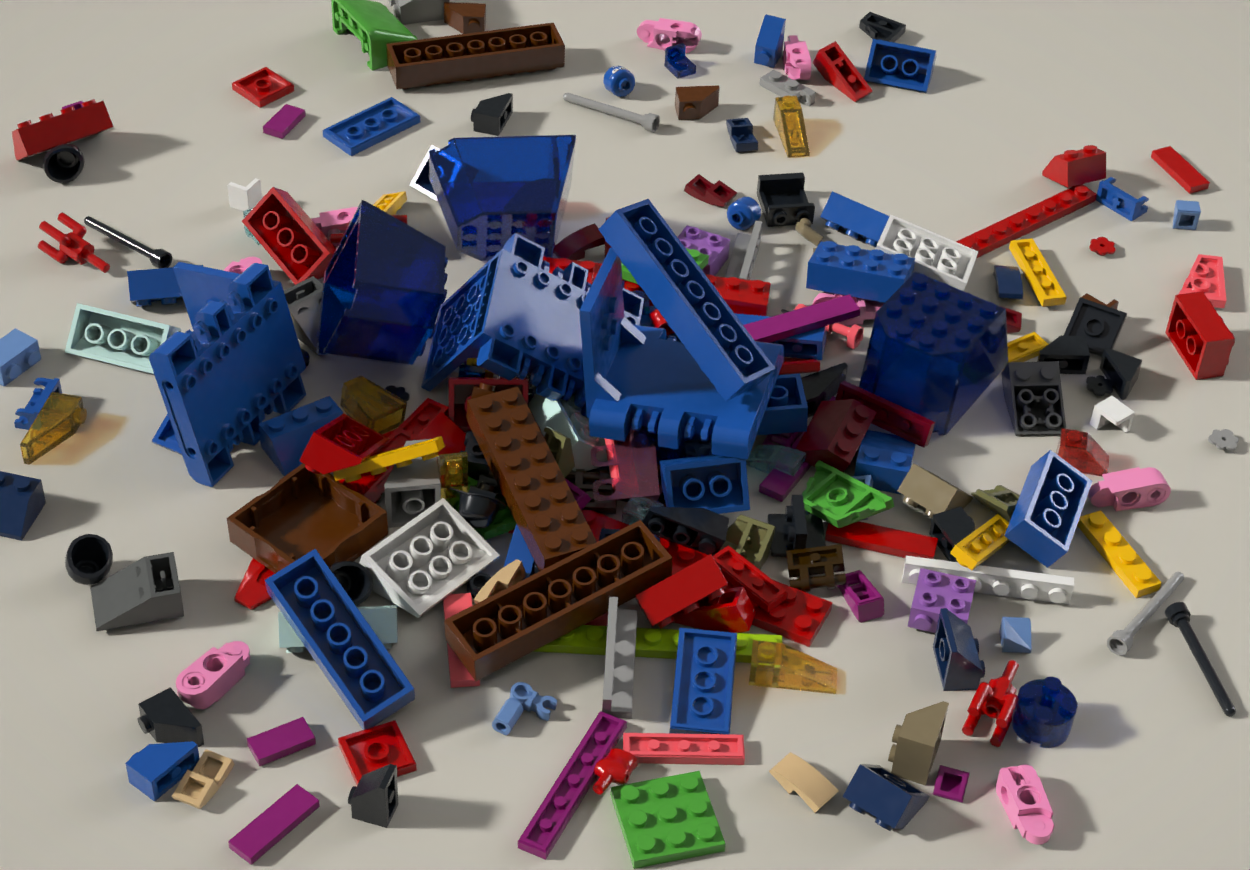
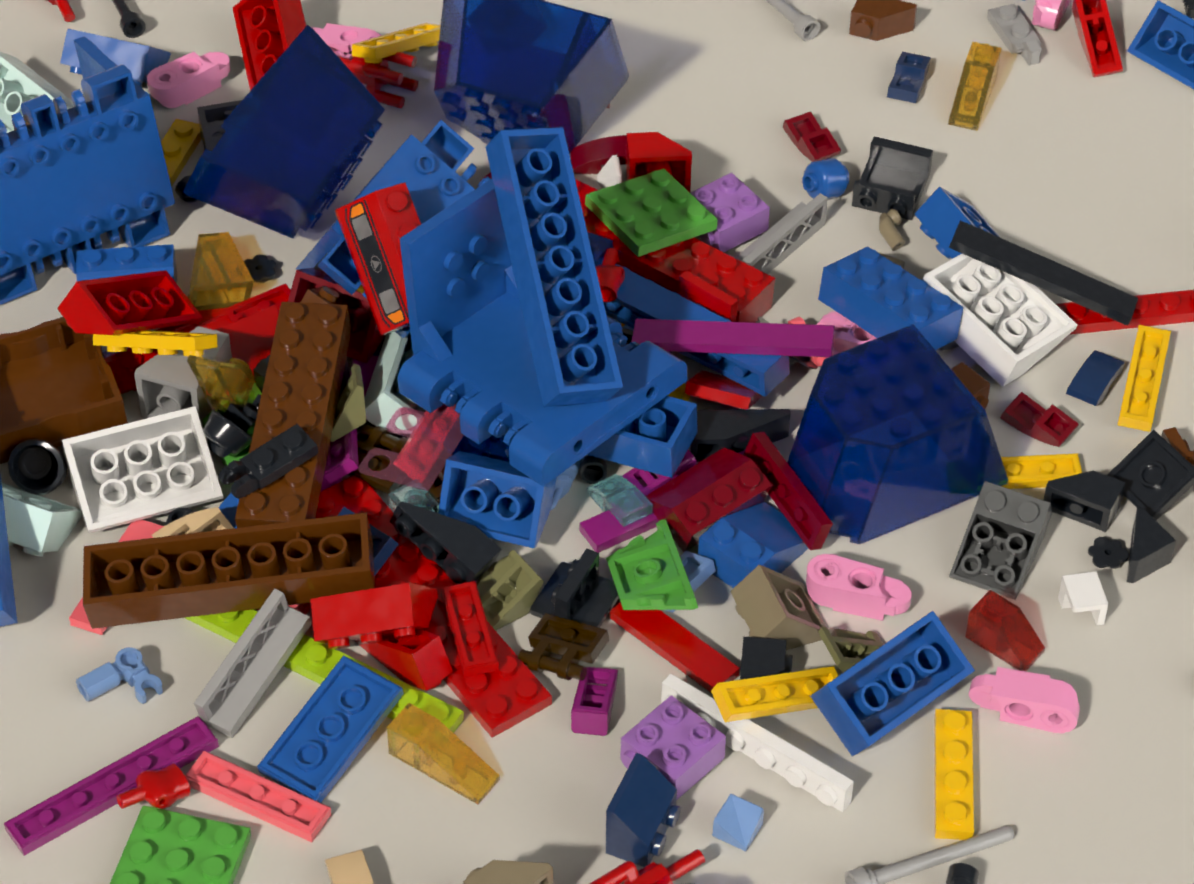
camera: 30 degrees right, 5 degrees up
(538, 339) = (373, 238): none -> red slope
(547, 508) = (269, 462): none -> black hinge
(597, 252) = (610, 173): none -> white slope
(938, 224) = (1043, 273): none -> black tile
(971, 460) = (855, 587): none -> bright pink piece

